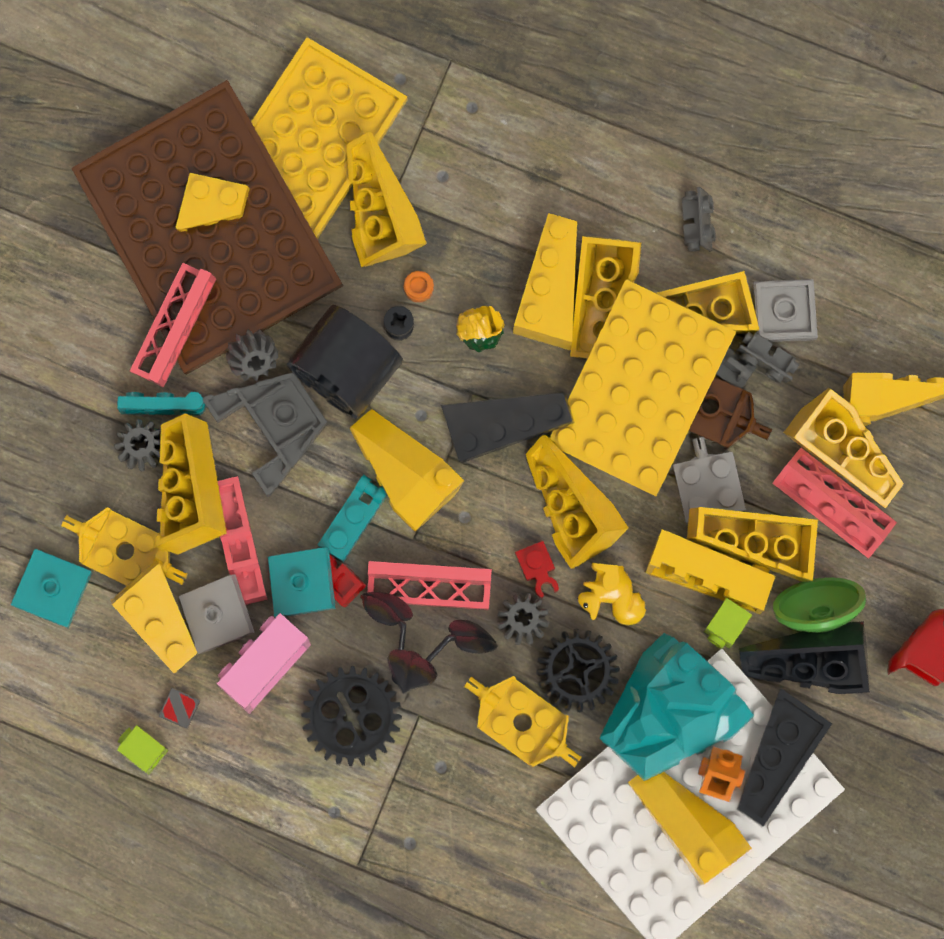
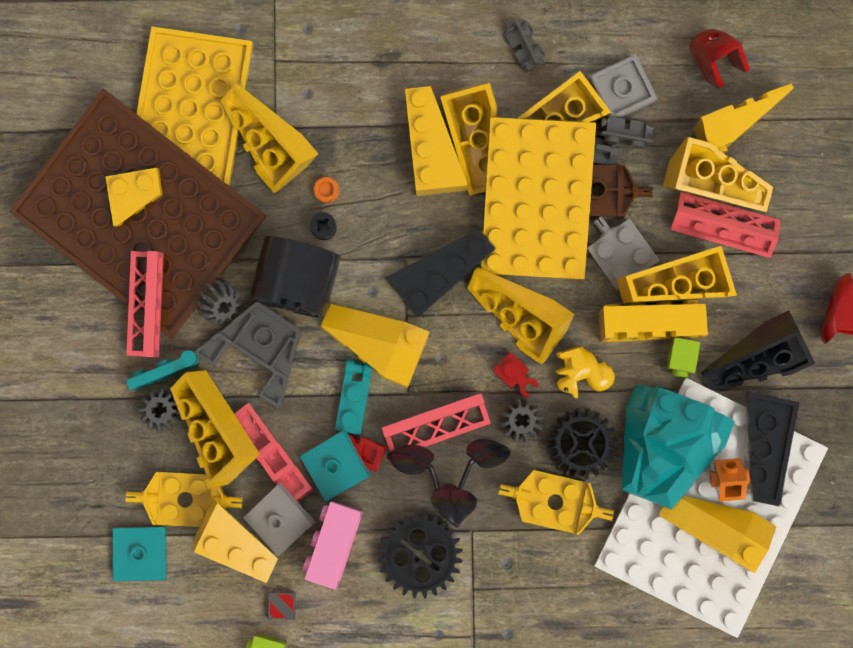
camera: 15 degrees left, 5 degrees up
(480, 328) = (389, 203): yellow piece -> none
(819, 604) = (751, 312): bright green dish -> none
(890, 309) = (708, 53): none -> red piece

